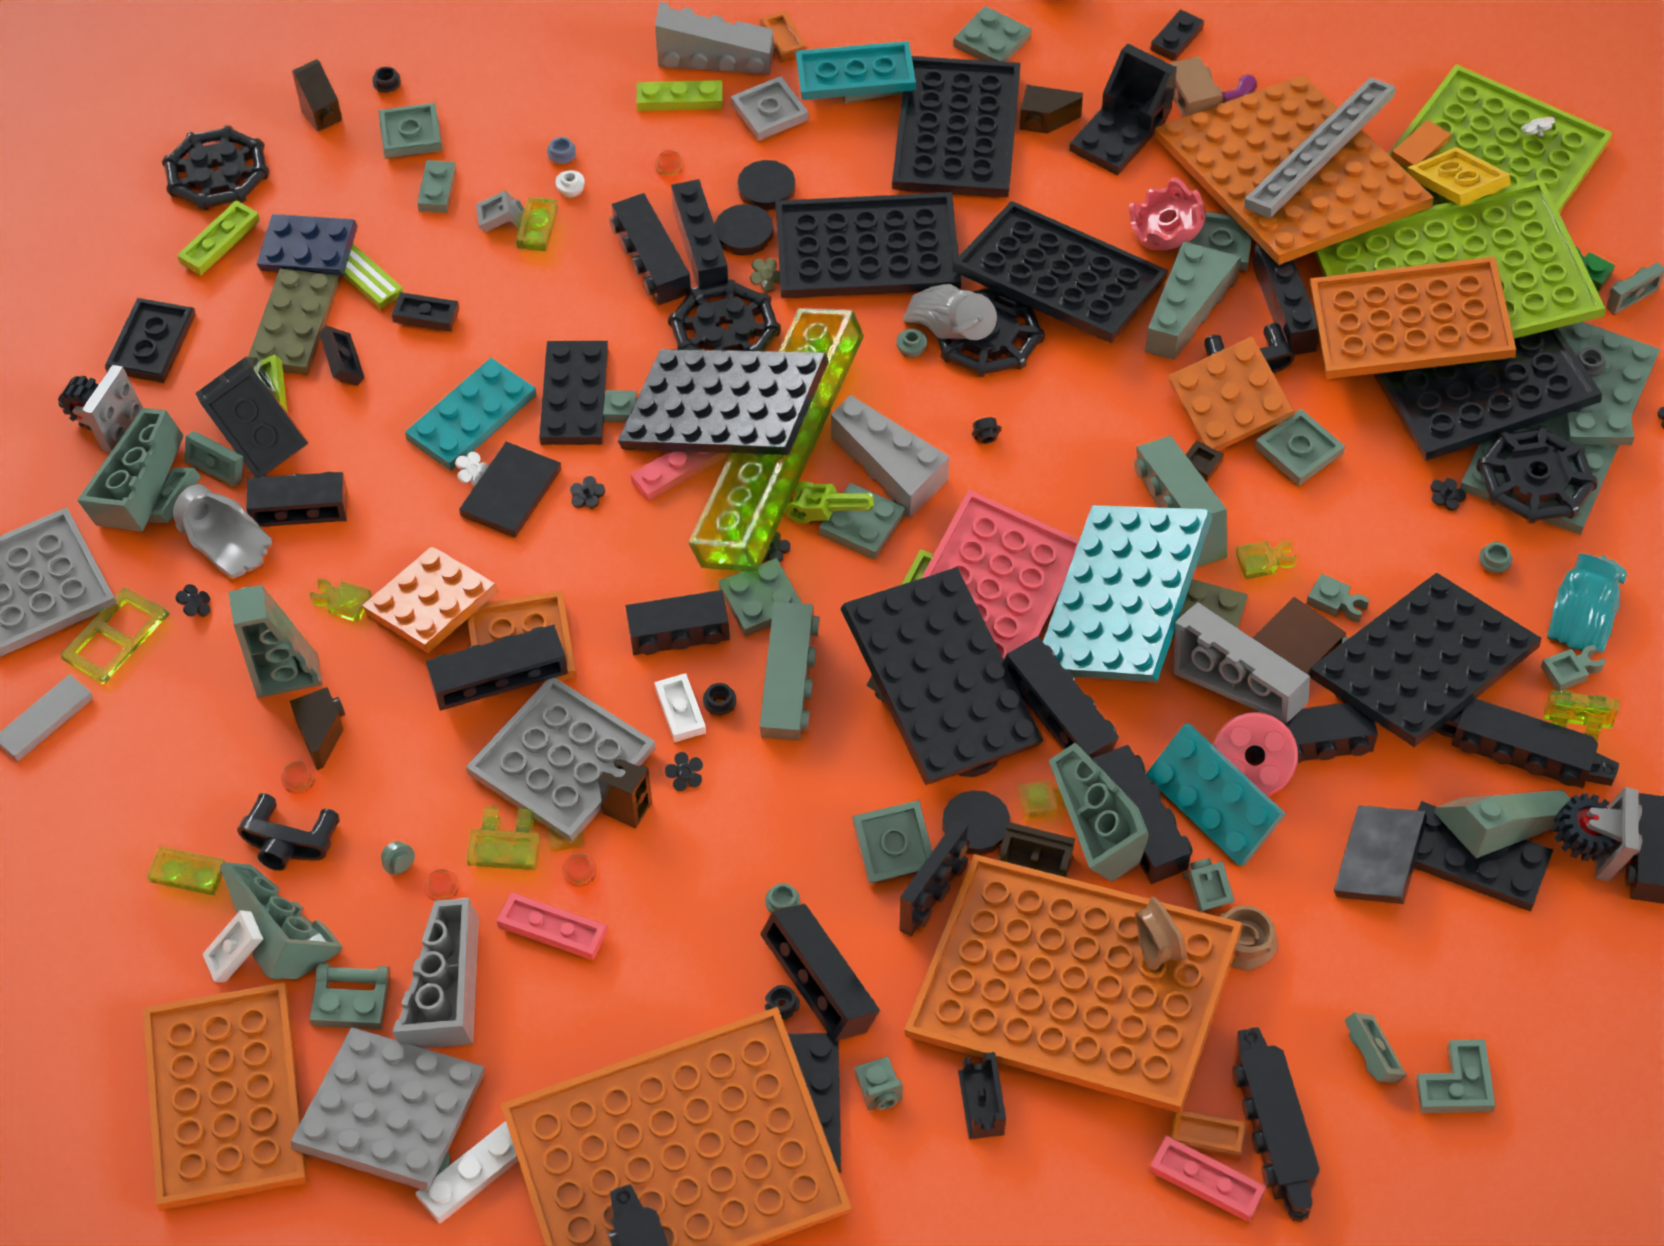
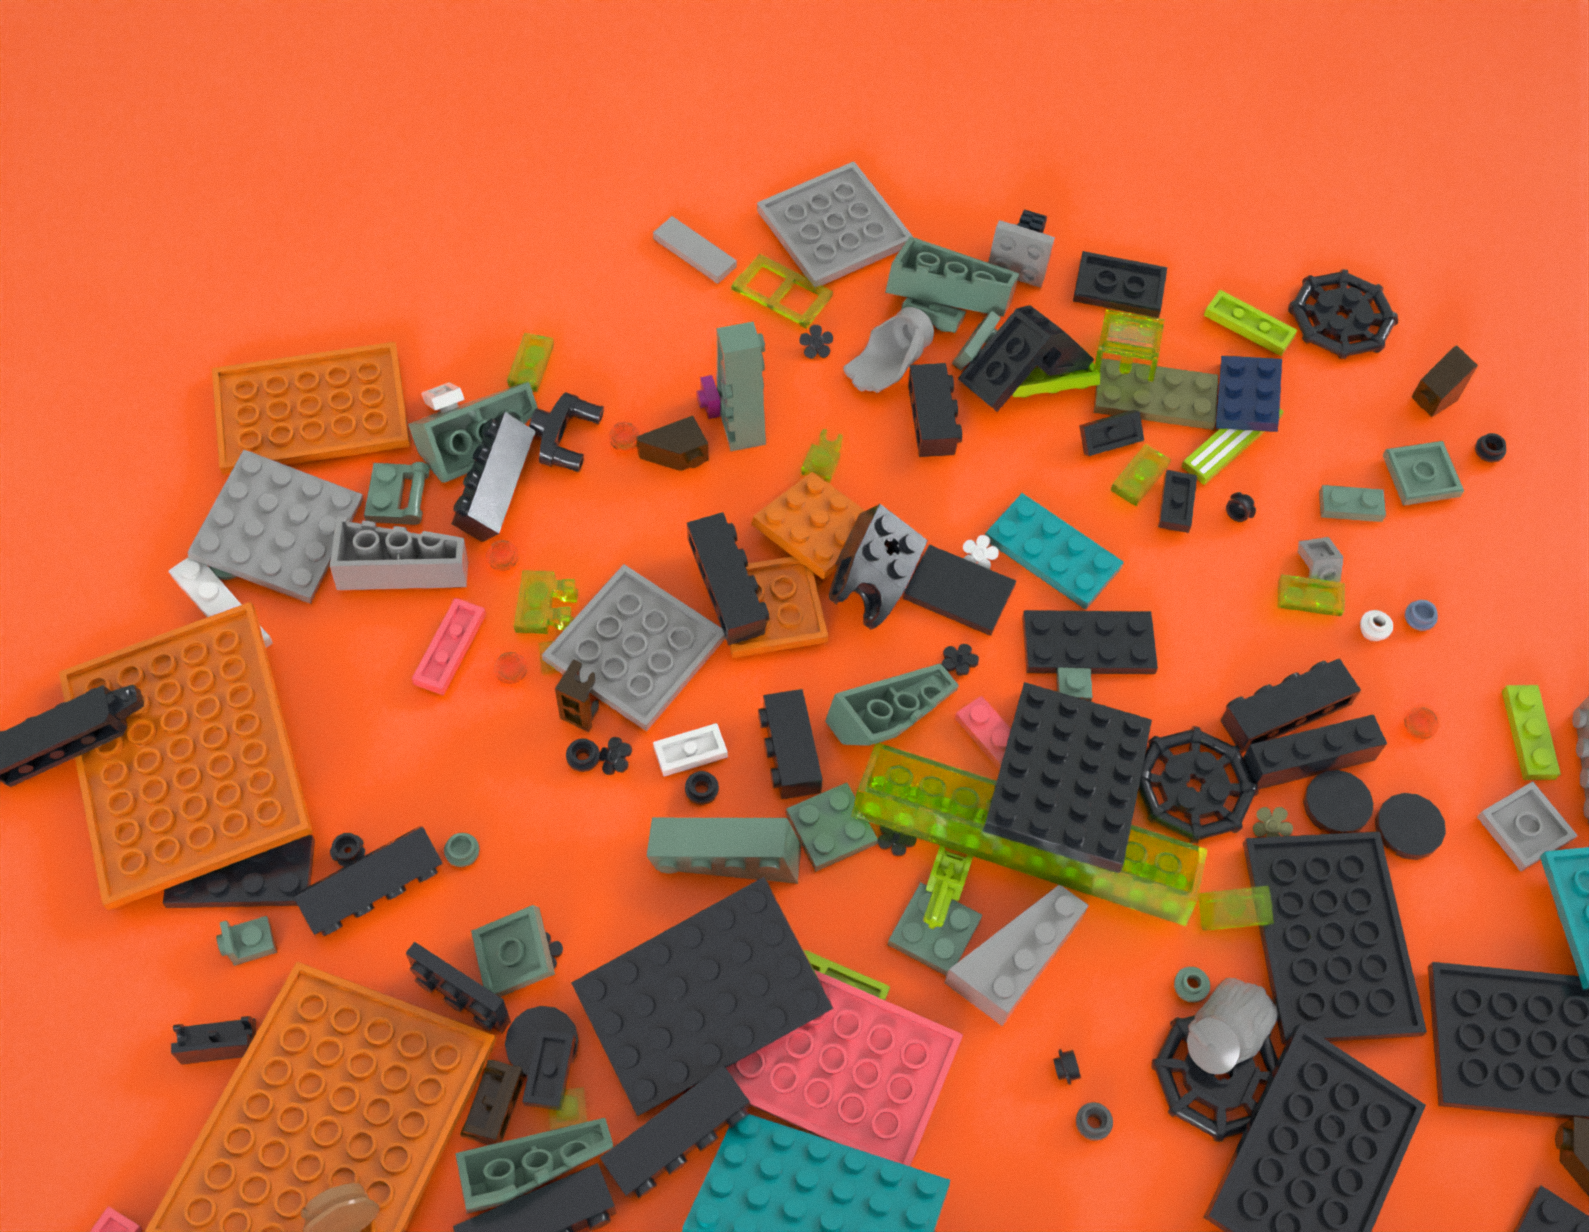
camera: 85 degrees right, 5 degrees up
(237, 325) = (1131, 338): none -> clear neon green window
(257, 695) = (709, 397): none -> magenta plate
(346, 890) = (492, 477): none -> brick
(392, 337) = (1140, 475): none -> clear neon green plate
(397, 857) = (531, 517): sand green plate -> none
(436, 265) = (1240, 507): none -> black plate
(488, 541) = (877, 563): none -> brick
(647, 540) = (888, 706): none -> sand green wedge
(678, 793) = (582, 746): none -> black plate
(846, 292) = (1236, 908): none -> clear neon green plate
(1007, 803) = (549, 1069): none -> black plate
(1028, 410) = (1101, 1113): none -> dark grey plate

